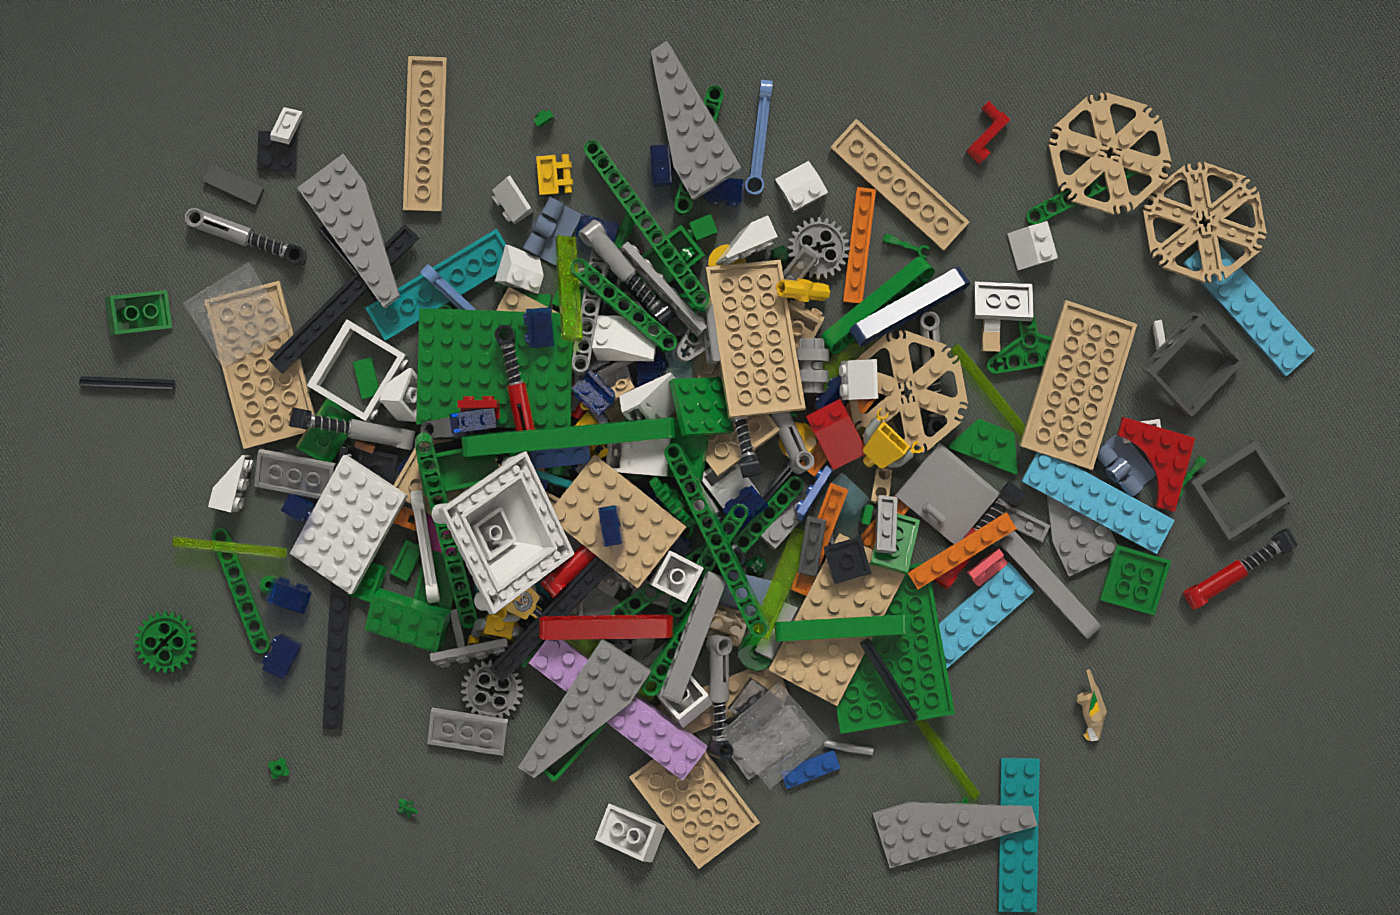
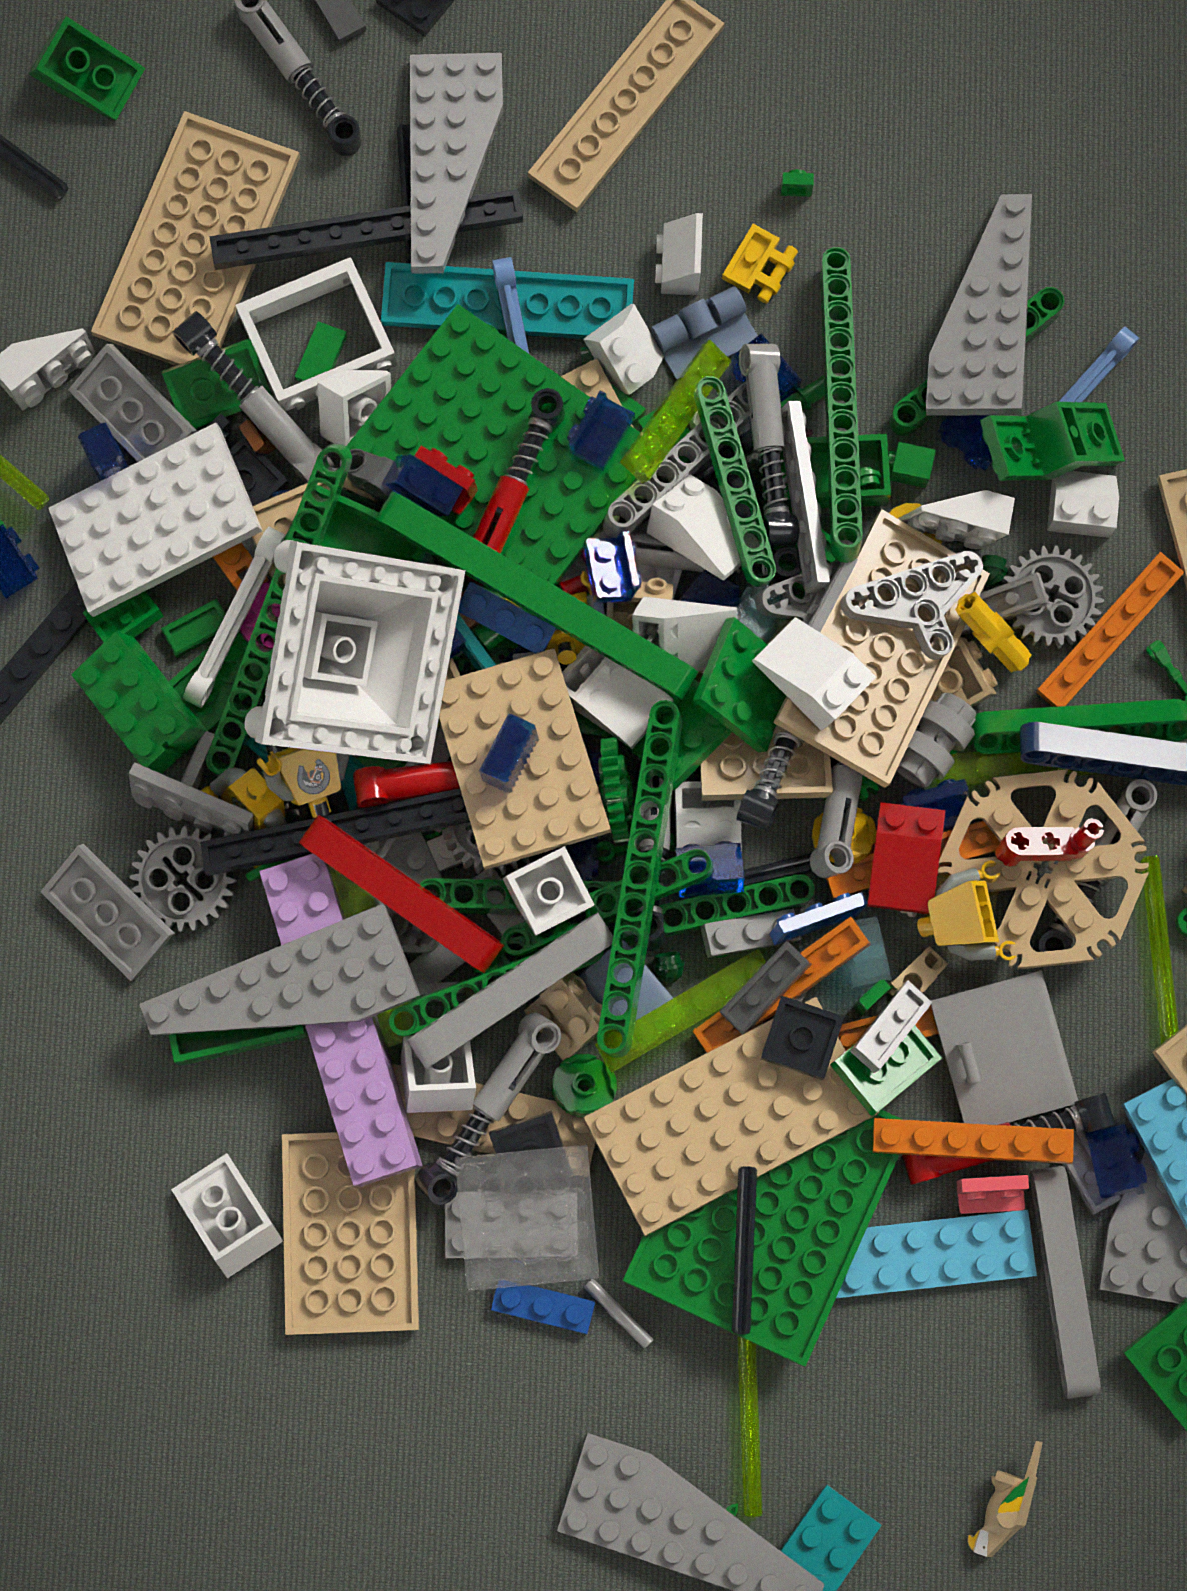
camera: 25 degrees right, 10 degrees down
(236, 315) = (211, 155): clear plate -> none
(661, 165) = (912, 346): clear blue brick -> none
(731, 380) = (813, 672): none -> white slope
(750, 309) = (904, 604): none -> beam
(766, 170) = (1052, 441): none -> green bracket
(769, 647) = (609, 1087): light grey tile -> none
(841, 627) = (729, 1126): green beam -> none
(858, 379) = (989, 799): white slope -> none
(910, 373) = (1068, 843): none -> red beam
(988, 444) = (1107, 1025): green wing -> none
(1037, 510) = (1116, 1161): none -> clear blue bracket

